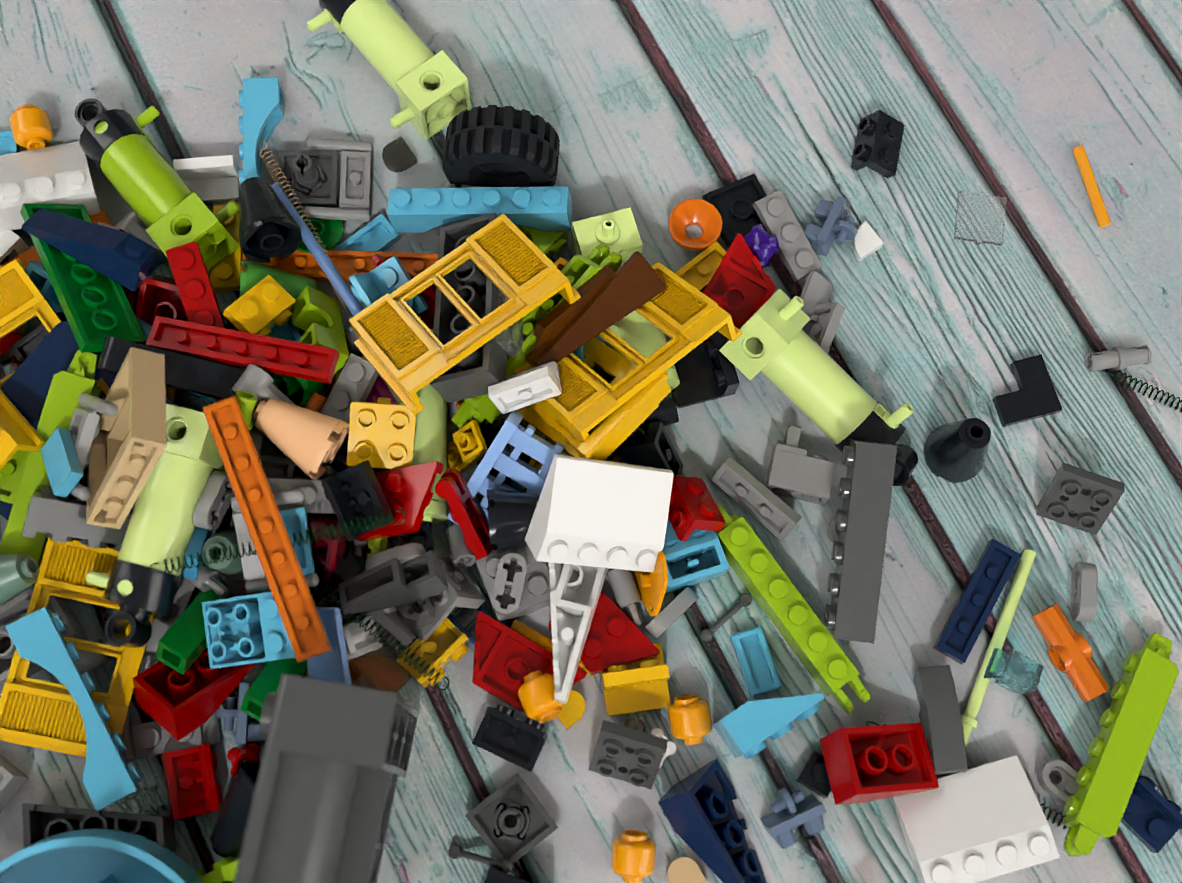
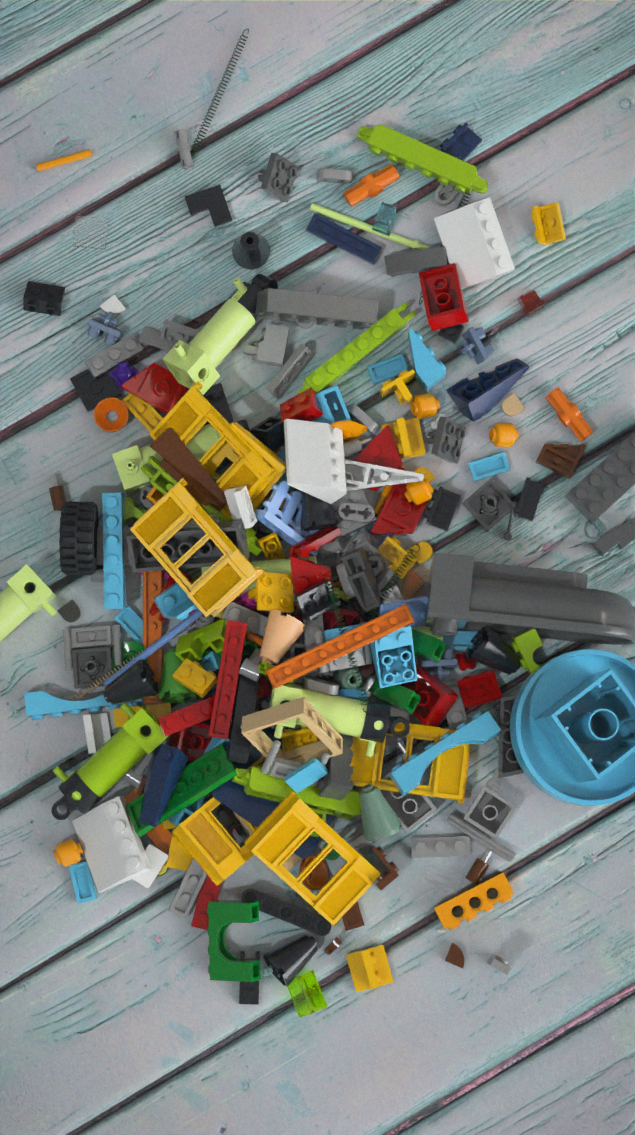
camera: 85 degrees left, 10 degrees up
(441, 702) = (424, 553): none -> yellow tile
(579, 826) = (489, 467): none -> medium azure tile
(580, 146) = (57, 494): none -> reddish brown piece
(723, 672) = (398, 386): none -> yellow bracket
(744, 601) = (351, 376): dark grey hinge -> none

